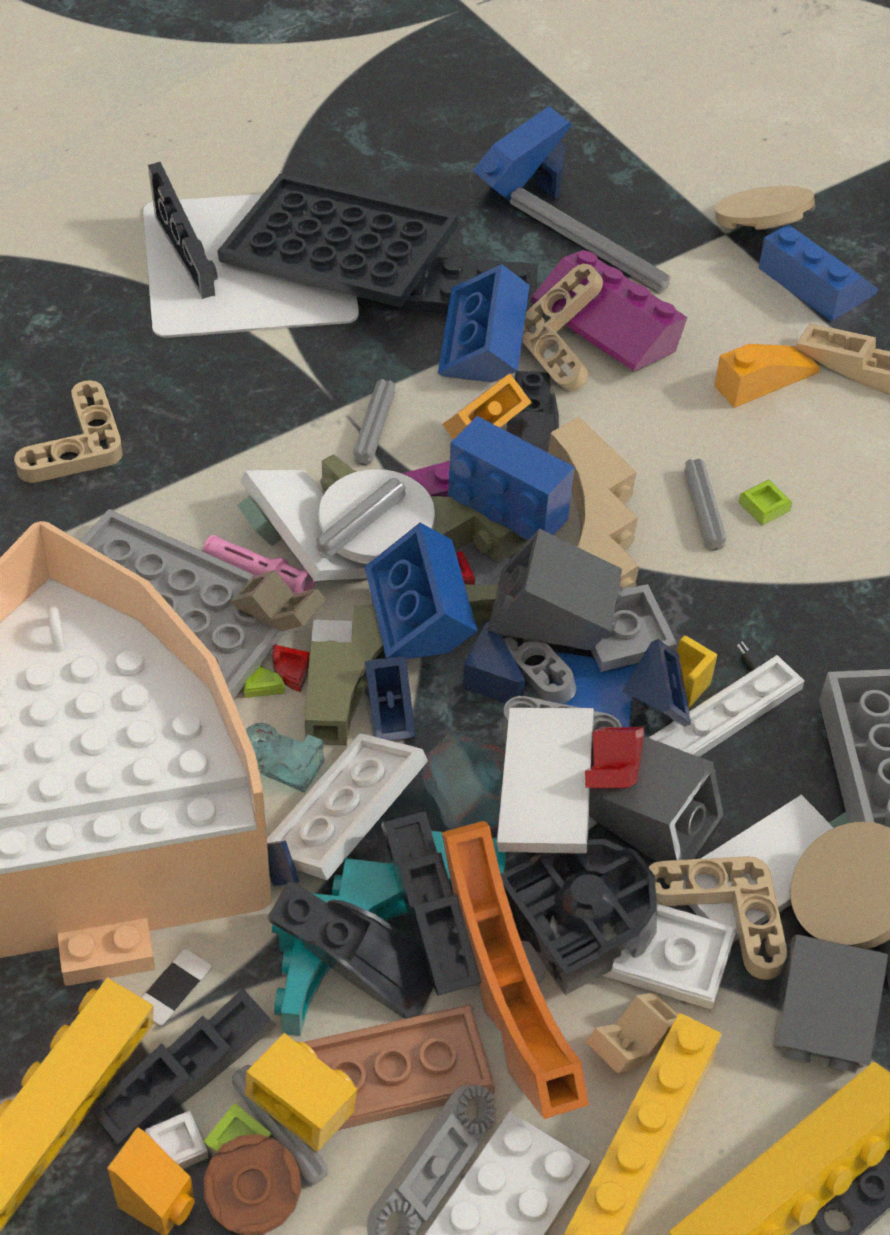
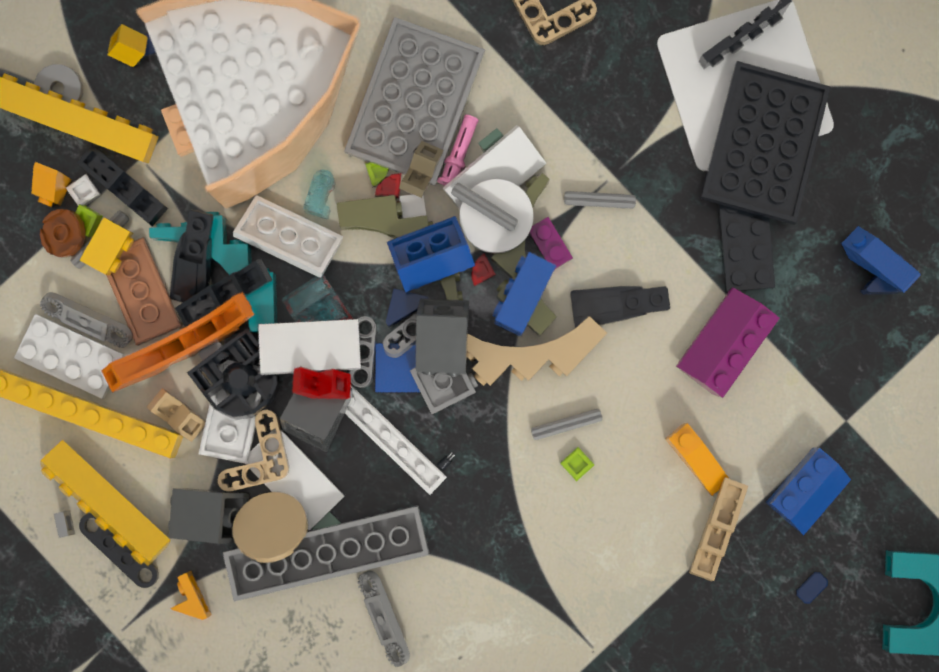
camera: 85 degrees right, 35 degrees up
(175, 984) = (171, 168): sticker -> none
(281, 864) = (244, 208): dark blue piece -> none
(389, 698) = (365, 249): dark blue slope -> none
(484, 326) = (692, 259): blue slope -> none
(494, 405) = (605, 271): light orange slope -> none
(547, 331) = (700, 302): tan beam -> none
(590, 240) = (813, 321): light grey axle -> none
(660, 683) = (398, 407): dark blue slope -> none
(696, 666) = (419, 422): yellow panel -> none
(765, 207) = (864, 446): tan tile -> none

